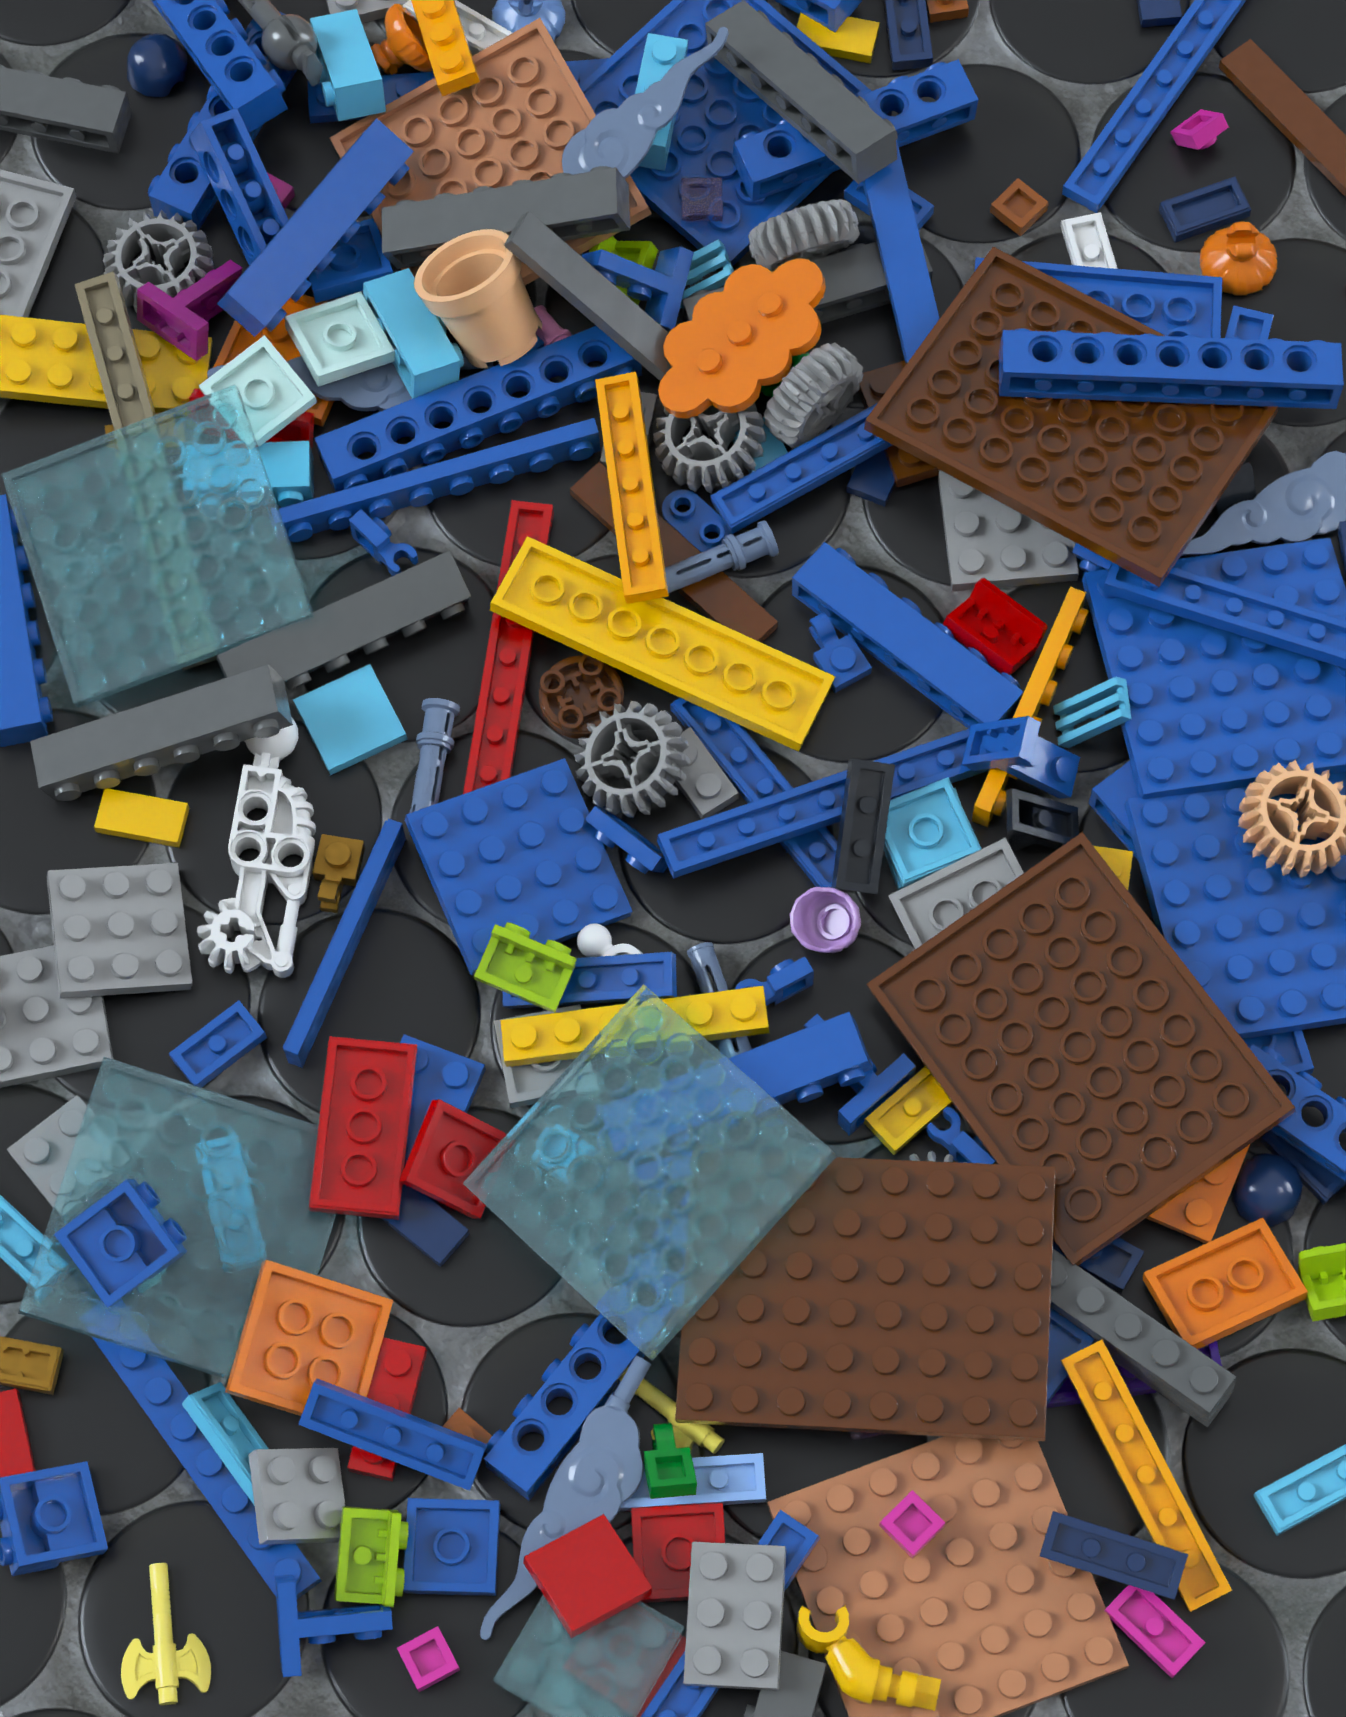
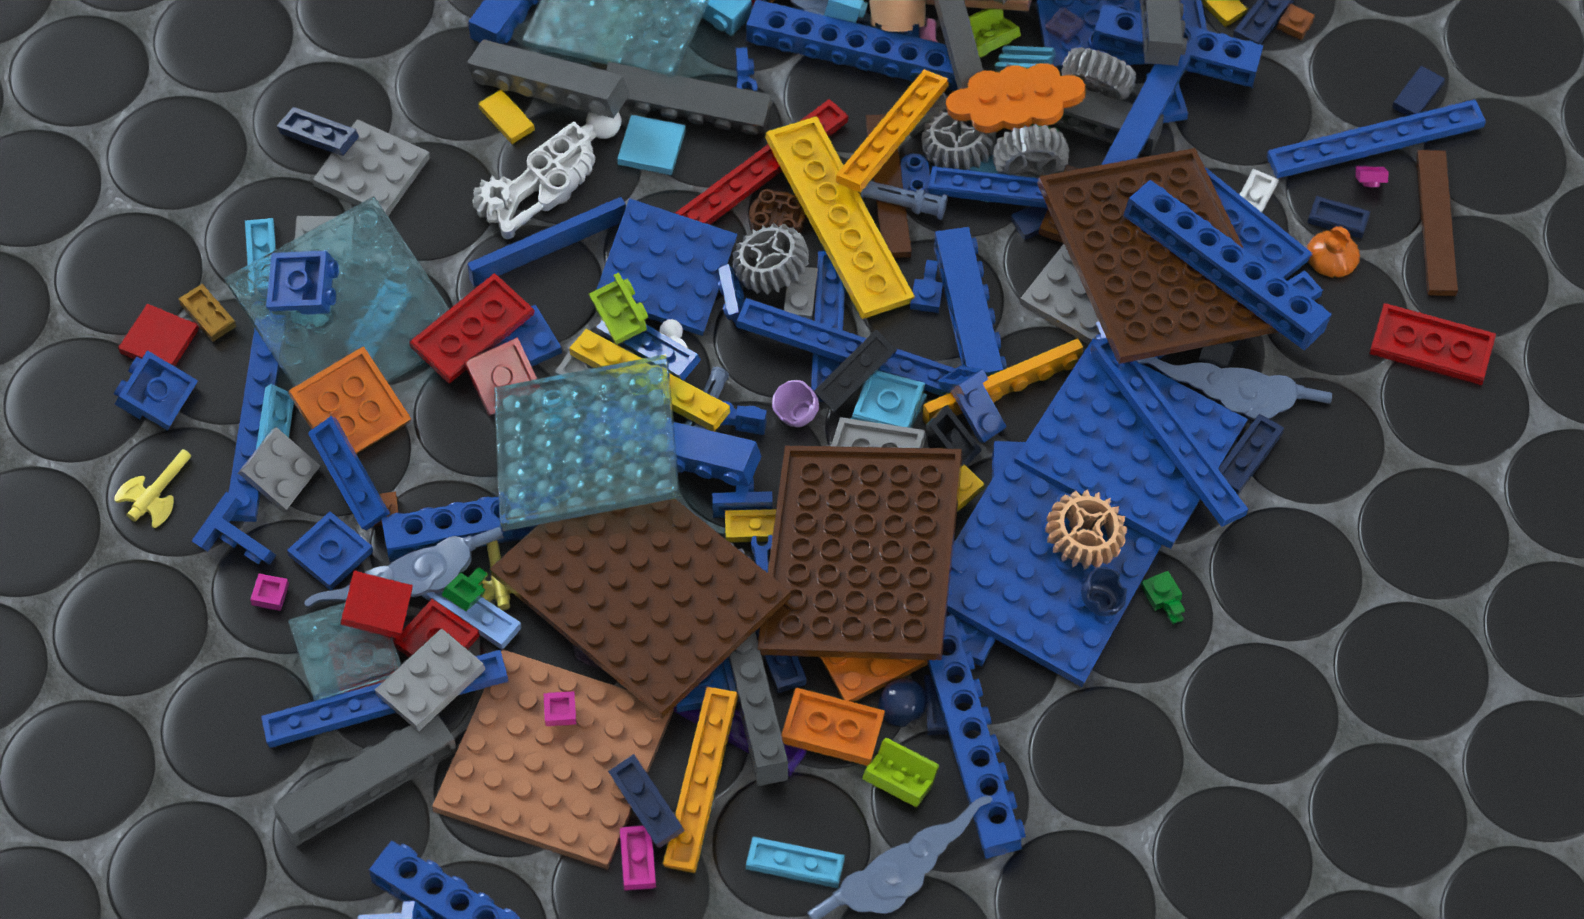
camera: 35 degrees right, 10 degrees down
(119, 930) = (444, 156): light grey plate -> none
(218, 1045) = (441, 243): blue plate -> none
(336, 865) = (575, 204): pearl gold plate -> none
(370, 1556) = (286, 521): lime bracket -> none
(395, 1385) = (376, 460): red plate -> none
(428, 1226) = (462, 400): dark blue tile -> none
(434, 744) = (681, 184): sand blue pin -> none
(440, 479) = (800, 64): blue plate -> none
(659, 287) = (992, 40): blue bracket -> none
(859, 1673) = (466, 756): yellow piece -> none
(996, 627) = (1021, 332): red bracket -> none
(1019, 207) = (1235, 145): dark orange plate -> none
(1092, 704) = (1030, 406): medium azure tile -> none

